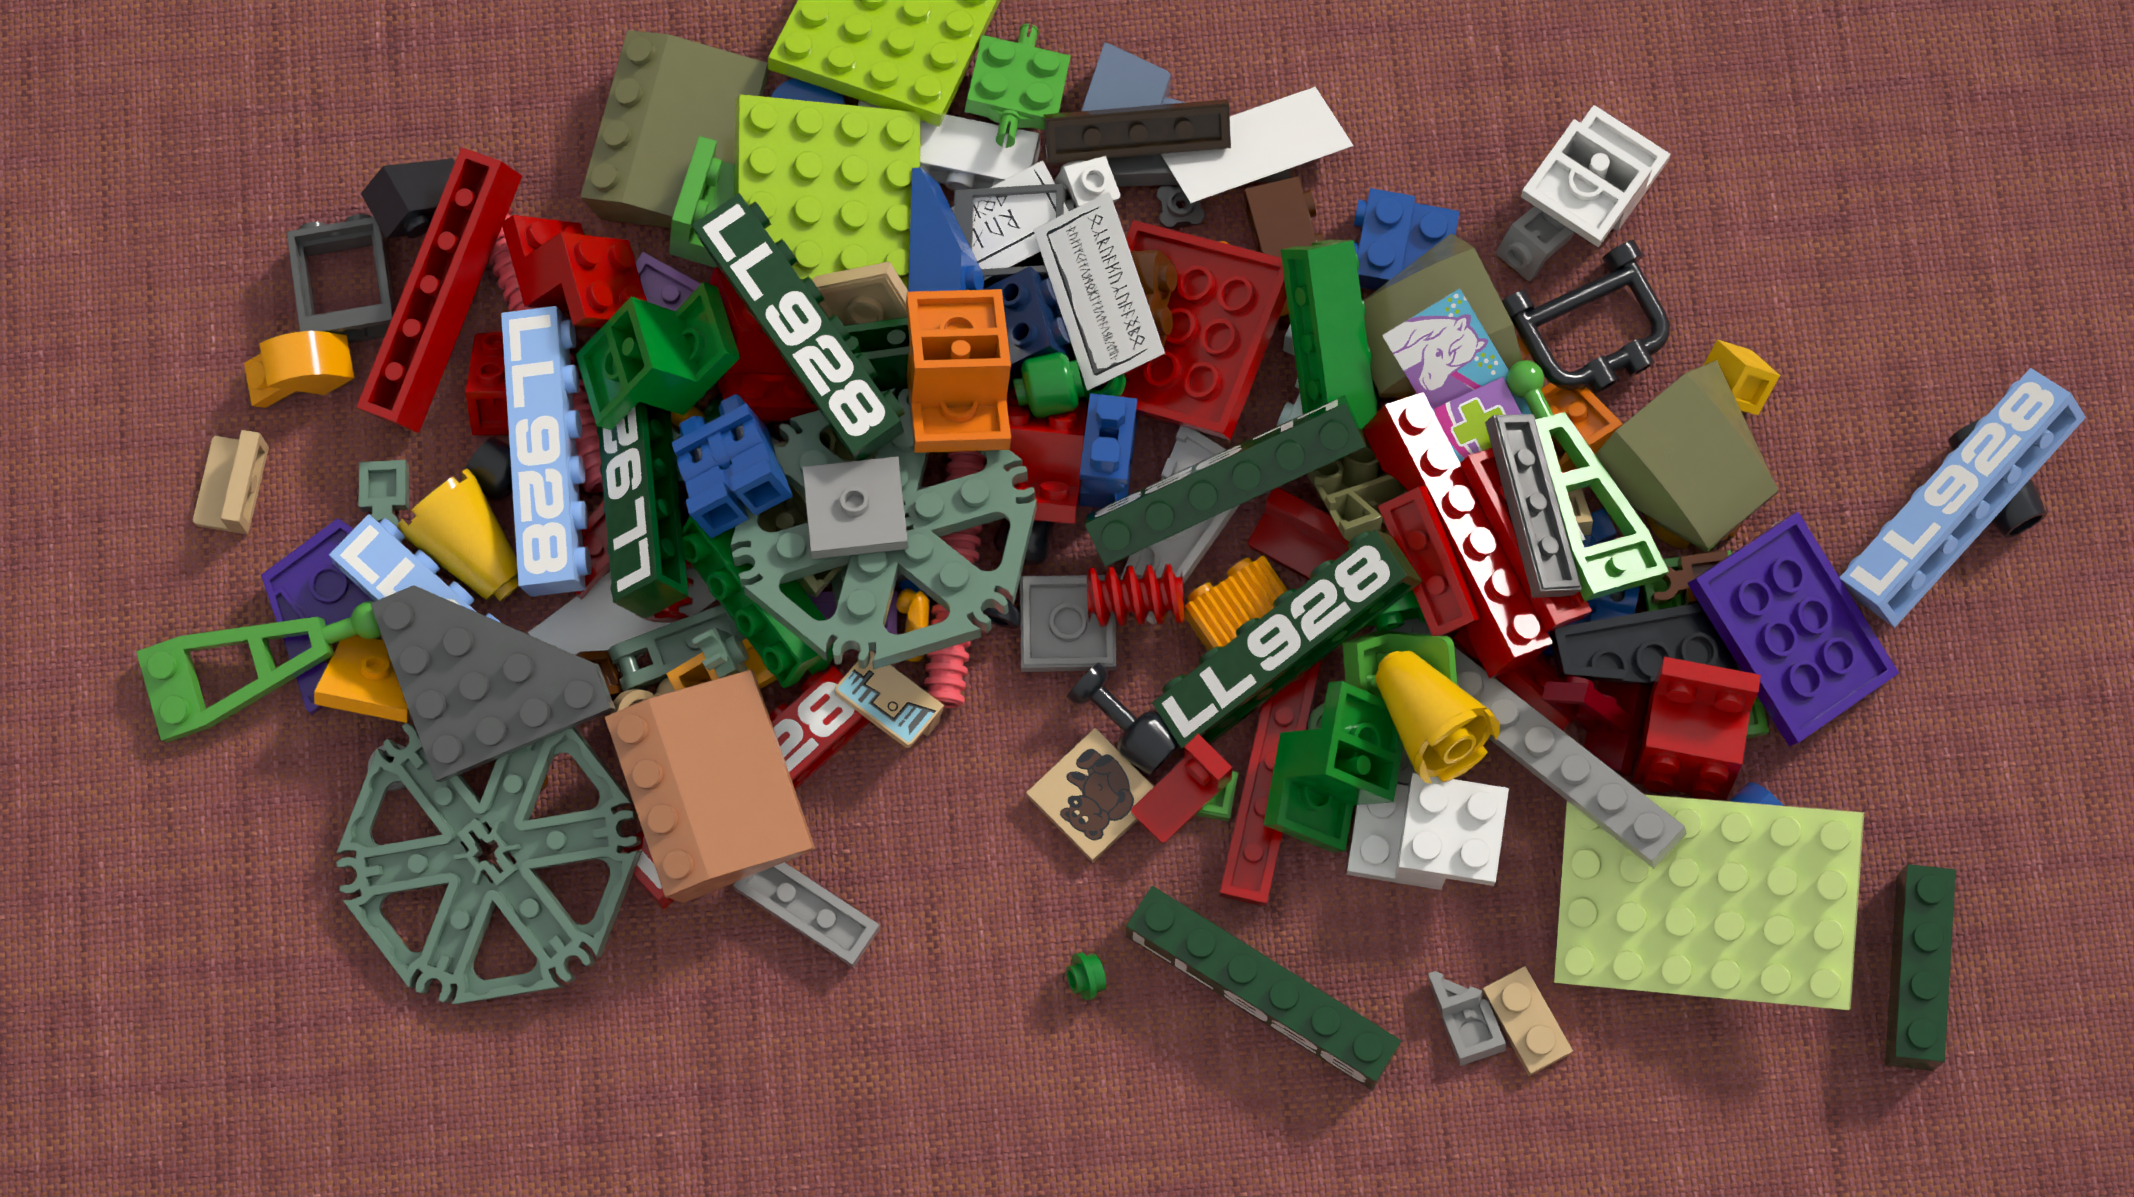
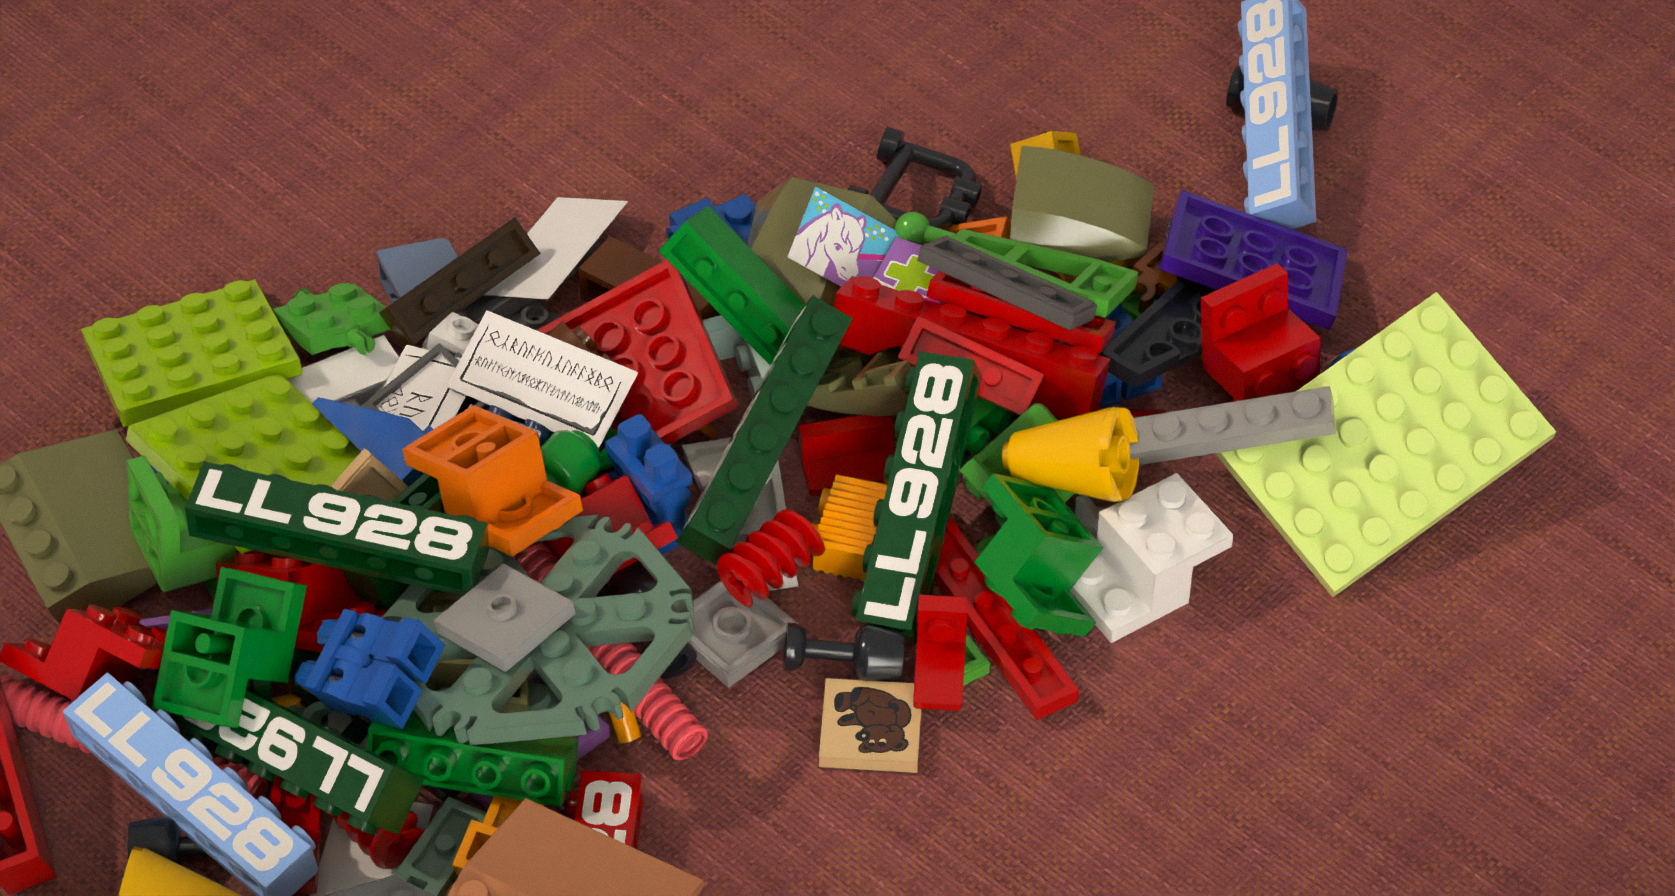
camera: 45 degrees left, 25 degrees down
(487, 386) = (98, 794): red bracket -> none
(722, 652) = (483, 807): sand green plate -> none
(890, 702) = (650, 760): panel -> none
(1086, 975) = (996, 839): green plate -> none
(1262, 987) = (1136, 744): dark green brick -> none
(1466, 1020) = (1299, 663): light grey slope -> none
(1527, 1021) = (1342, 632): tan plate -> none
(1532, 242) = (819, 166): light grey bracket -> none
(1595, 175) = (824, 101): white bracket -> none
(1608, 714) = (1174, 387): dark red bracket -> none
(1920, 967) = (1573, 402): dark green brick -> none

